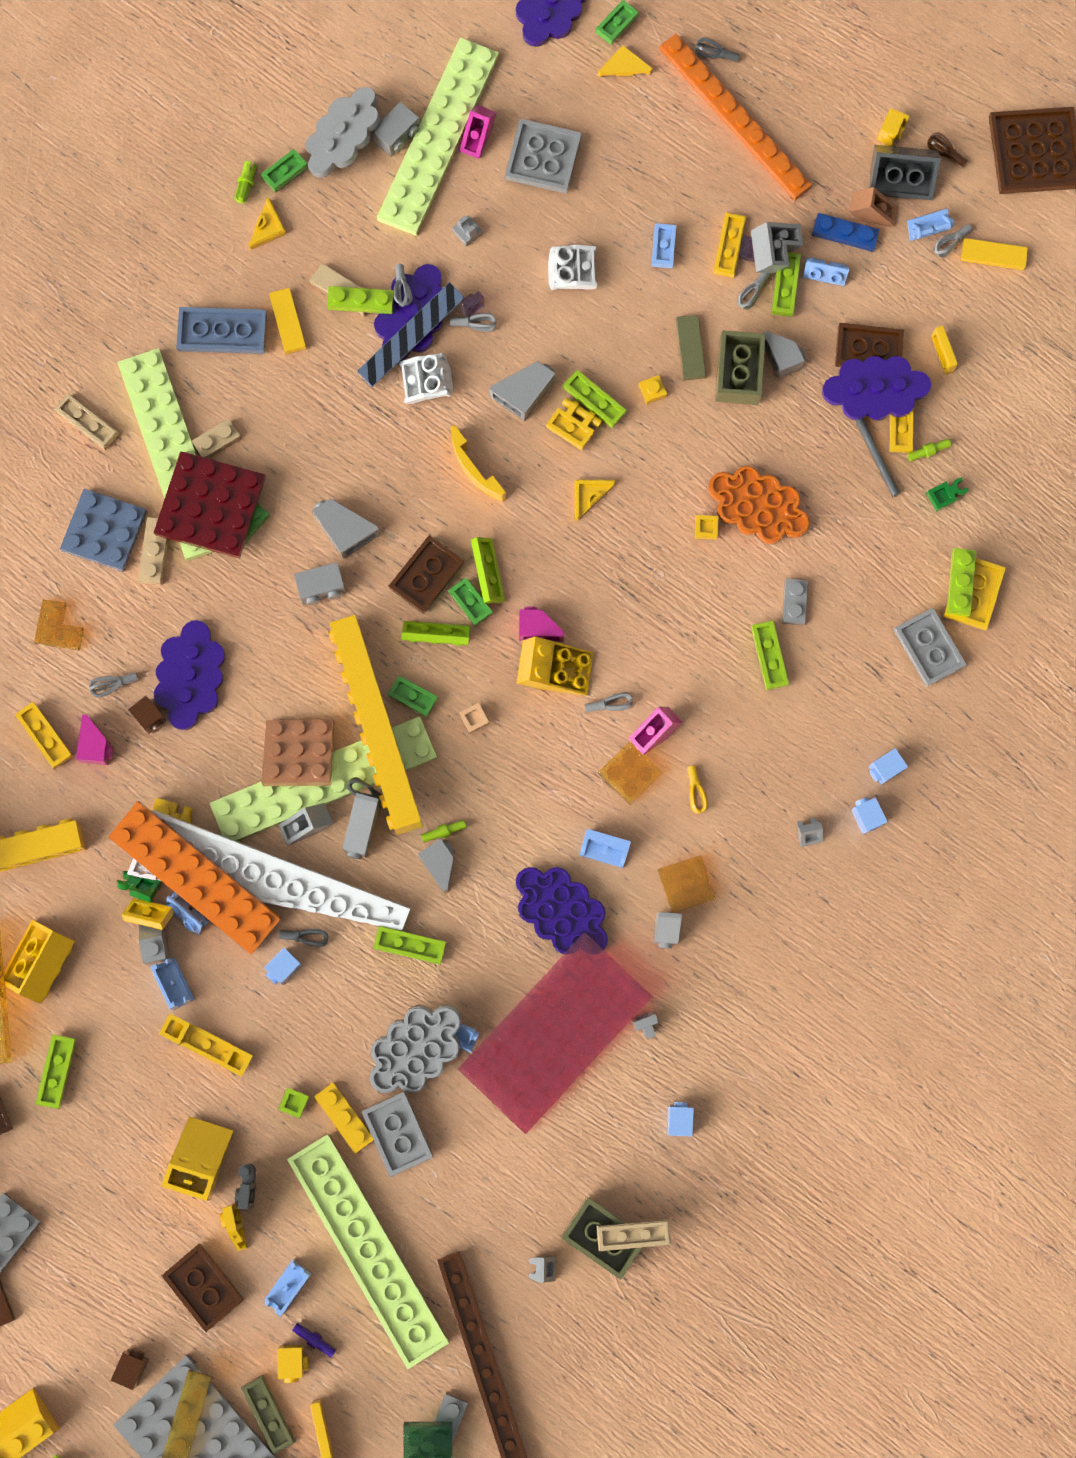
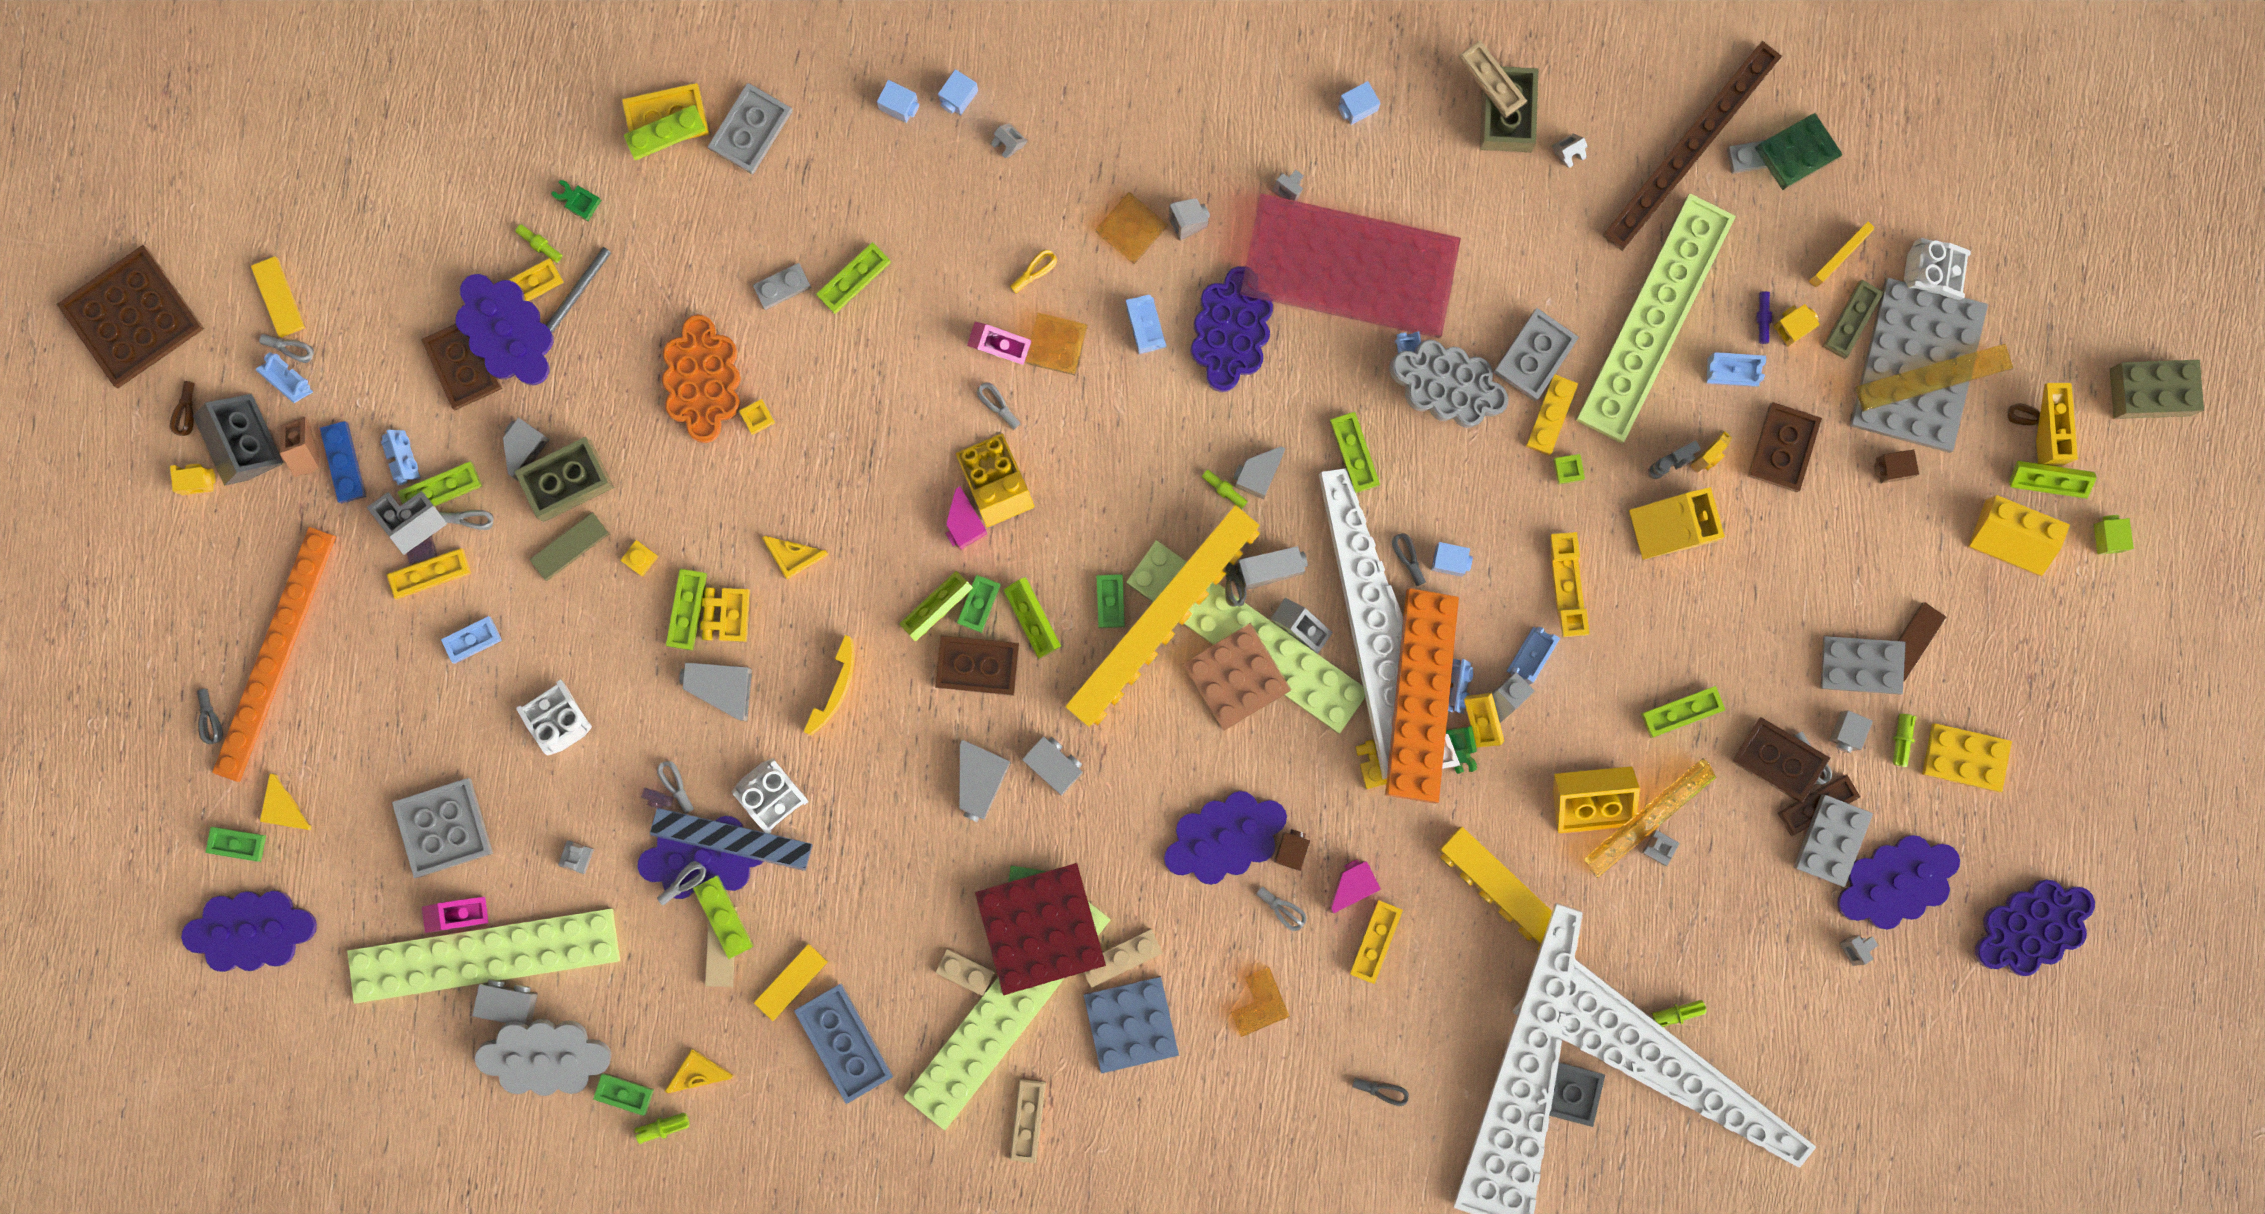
camera: 120 degrees left, 5 degrees up
(473, 718) = (1095, 527): light nougat plate -> none
(944, 350) = (419, 287): yellow tile -> none

